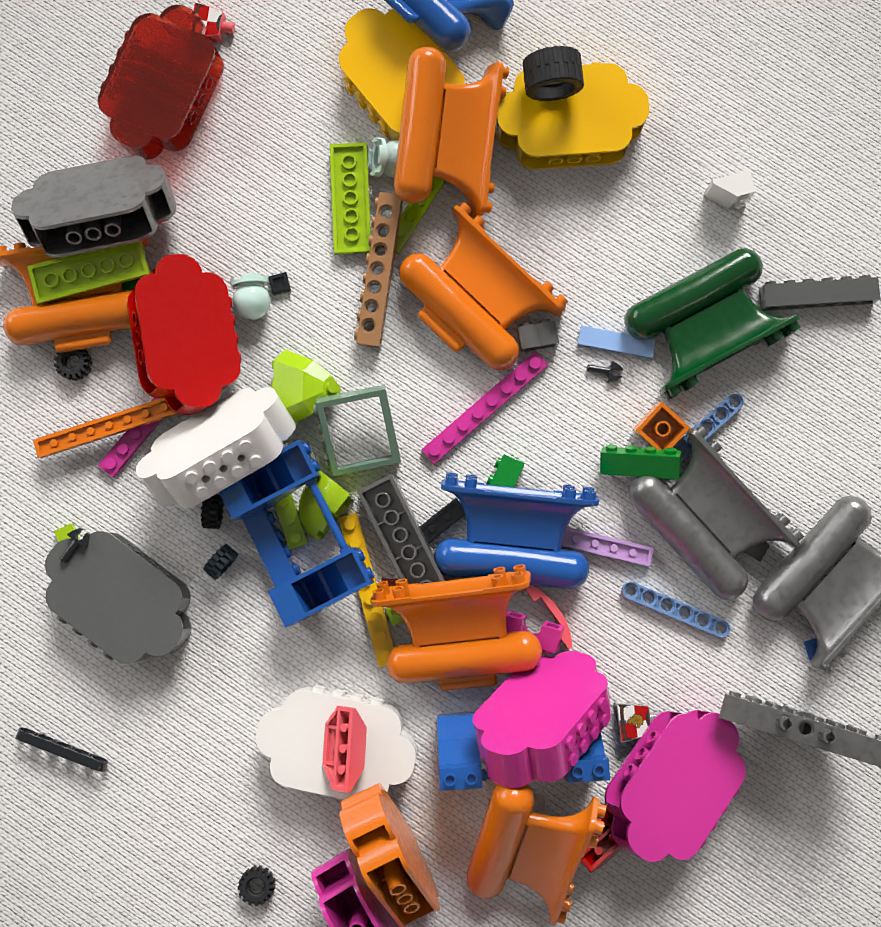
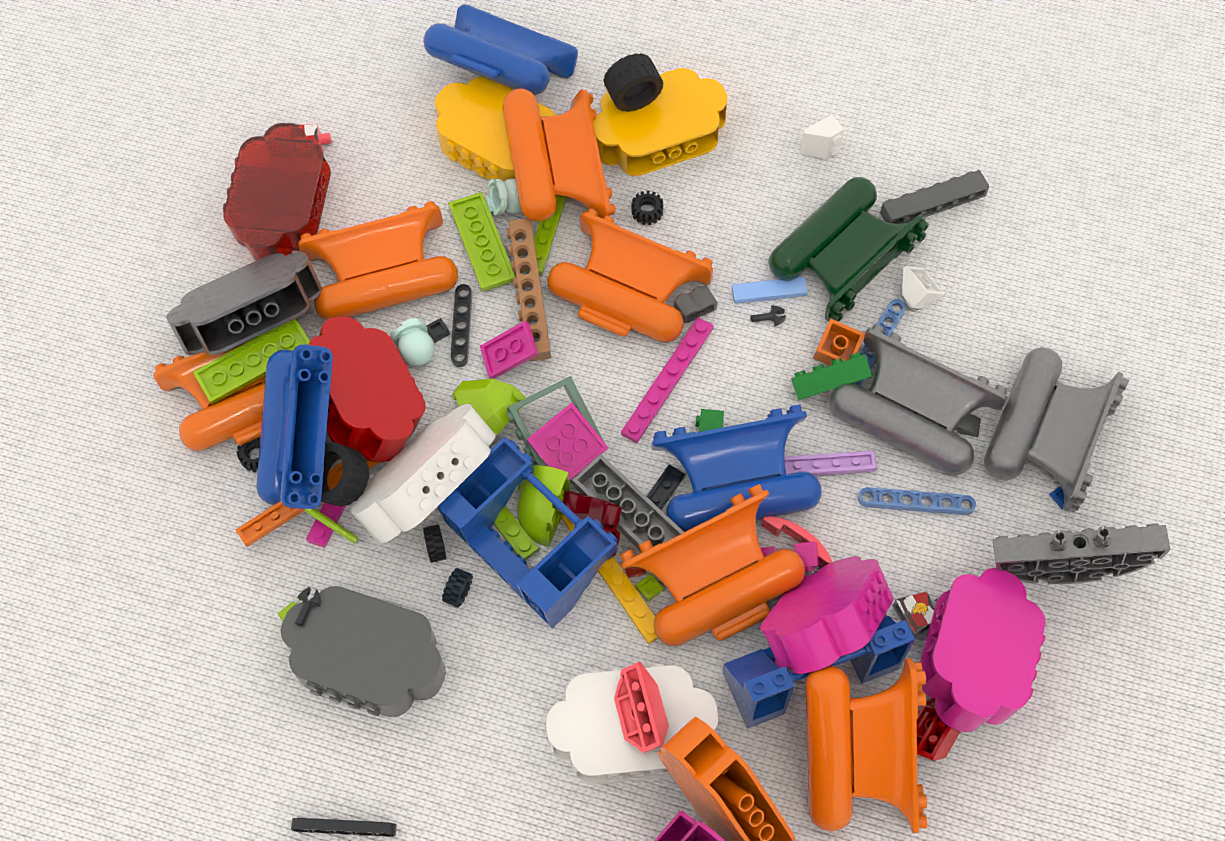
camera: 20 degrees left, 20 degrees down
(103, 366) = (294, 426): none -> blue piece
(114, 422) = (354, 475): none -> black tyre
(120, 457) = (332, 524): none -> lime bar
(241, 196) = (380, 263): none -> orange piece
(305, 295) = (464, 332): none -> black beam
(339, 332) = (509, 350): none -> dark pink plate
(362, 454) = (567, 442): none -> dark pink plate
(368, 534) = (604, 511): none -> dark red panel
(526, 201) = (647, 199): none -> black tyre
(765, 388) = (919, 288): none -> white slope

